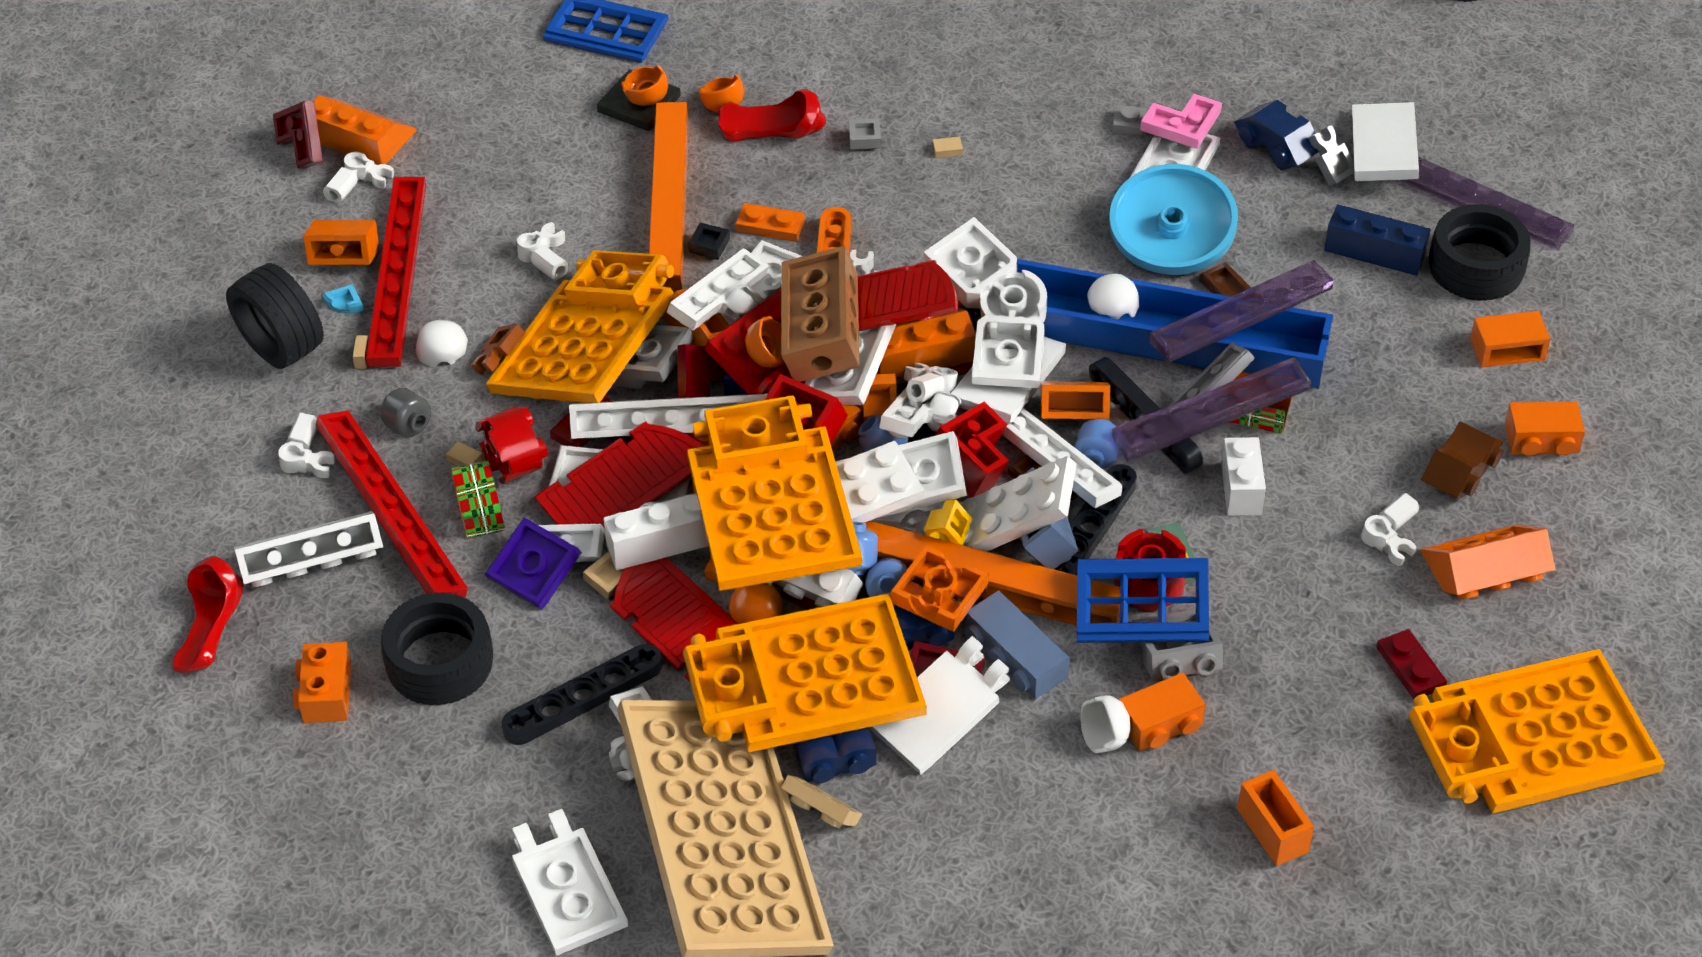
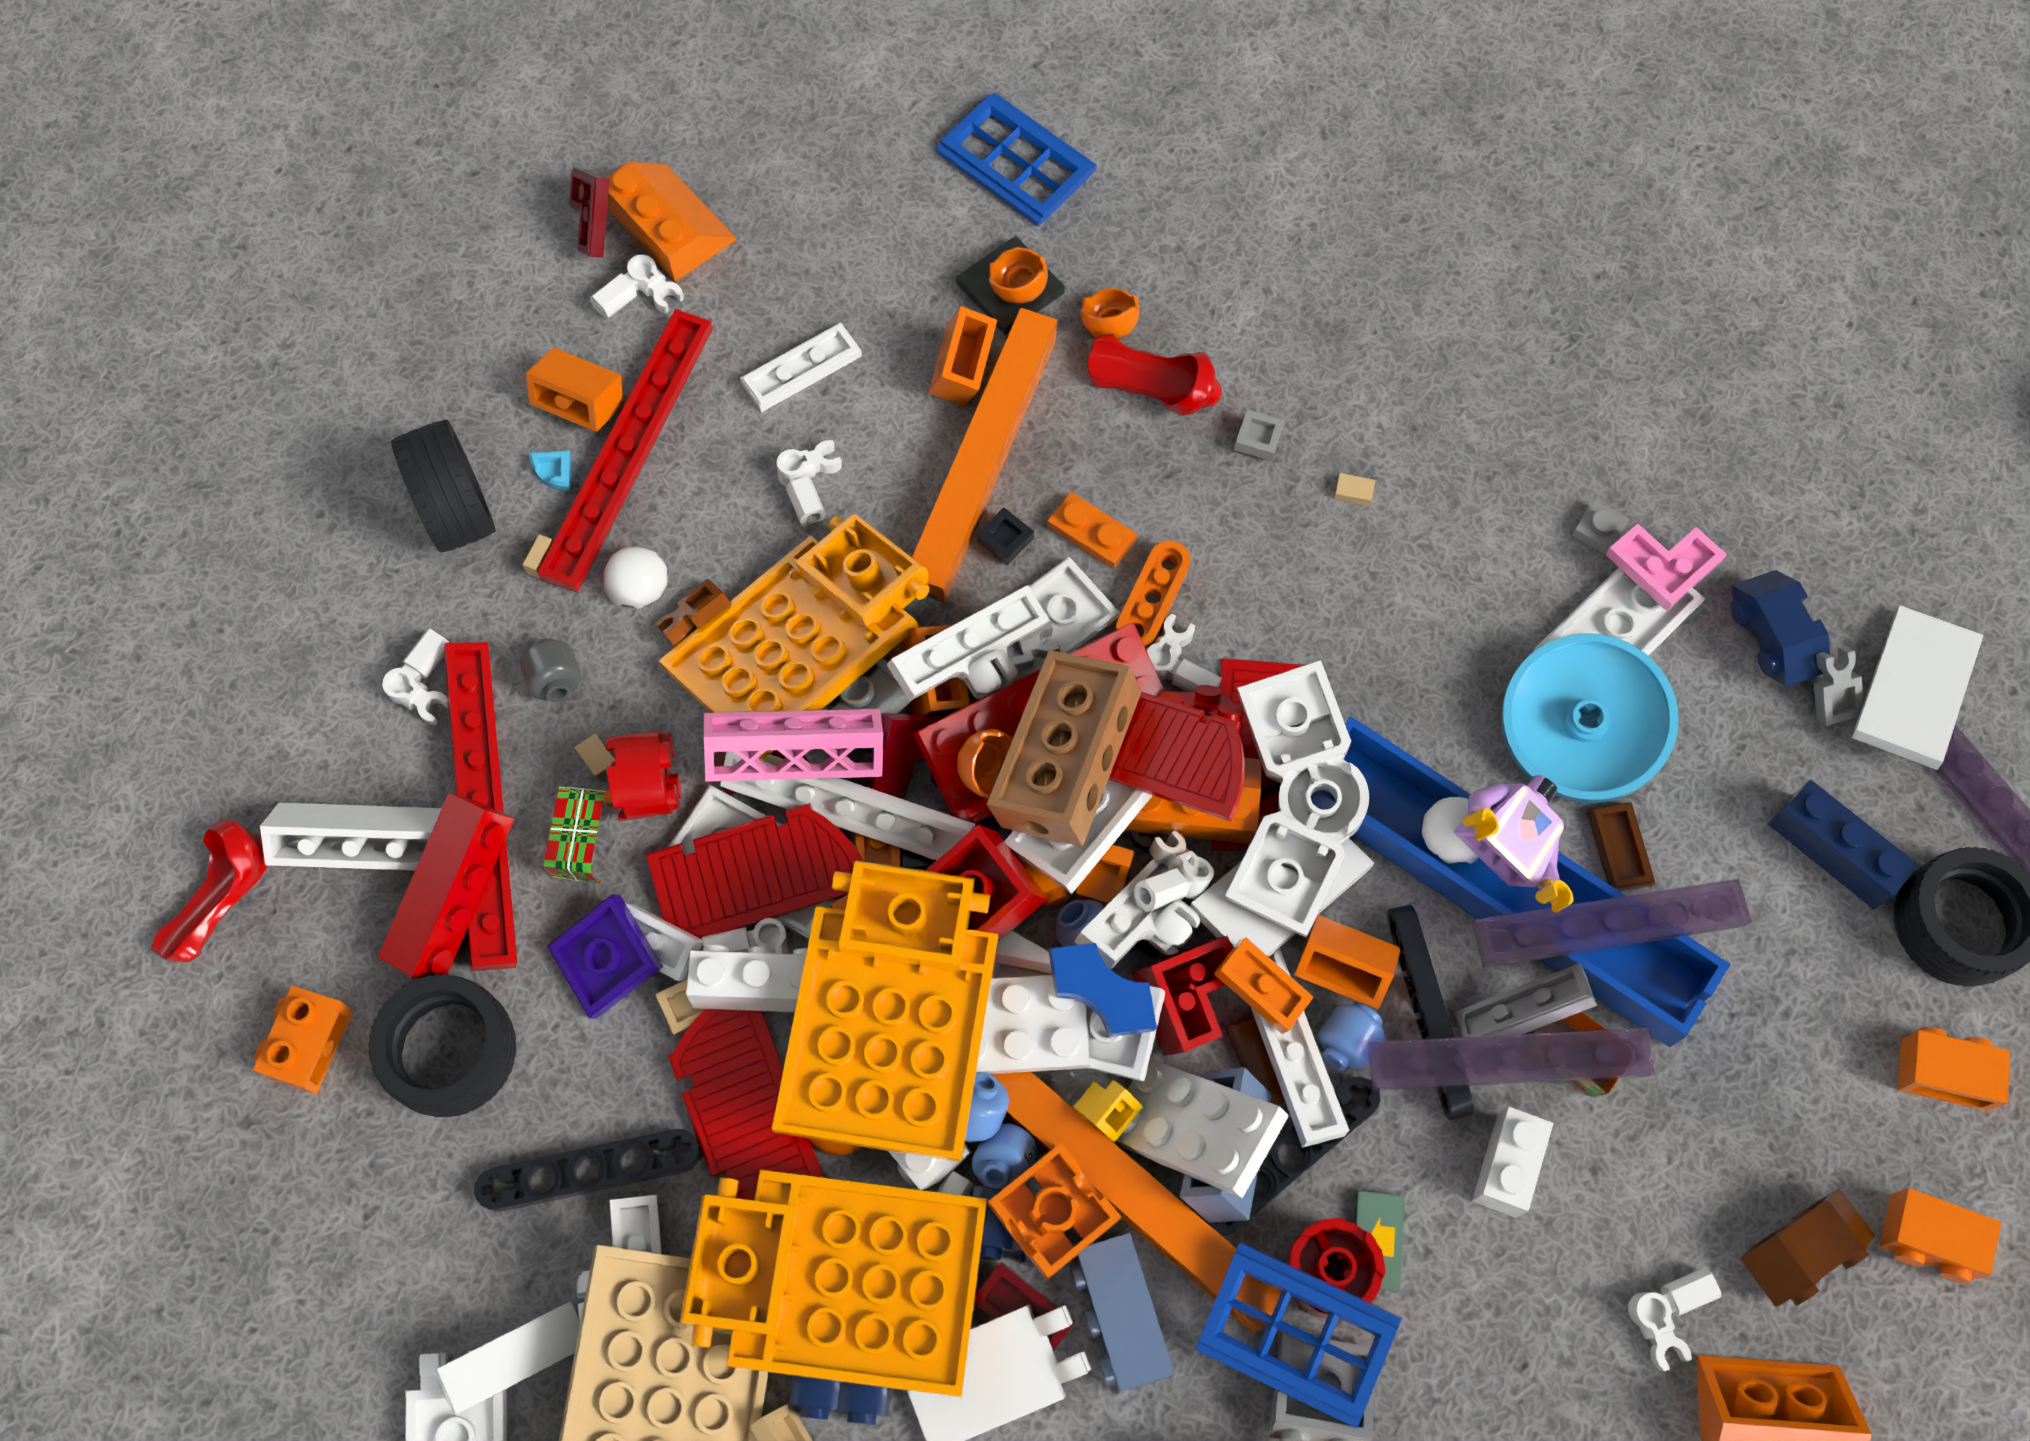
camera: 20 degrees right, 20 degrees up
(395, 544) = (445, 887): none -> red brick
(505, 189) = (801, 367): none -> white tile
(583, 807) = (509, 1358): none -> white tile
(617, 368) = (793, 736): none -> bright pink fence
(626, 143) = (962, 356): none -> orange piece
(897, 436) = (1085, 977): none -> blue tile
(1023, 419) = (1263, 985): none -> orange plate
(1155, 278) = (1518, 836): none -> lavender torso

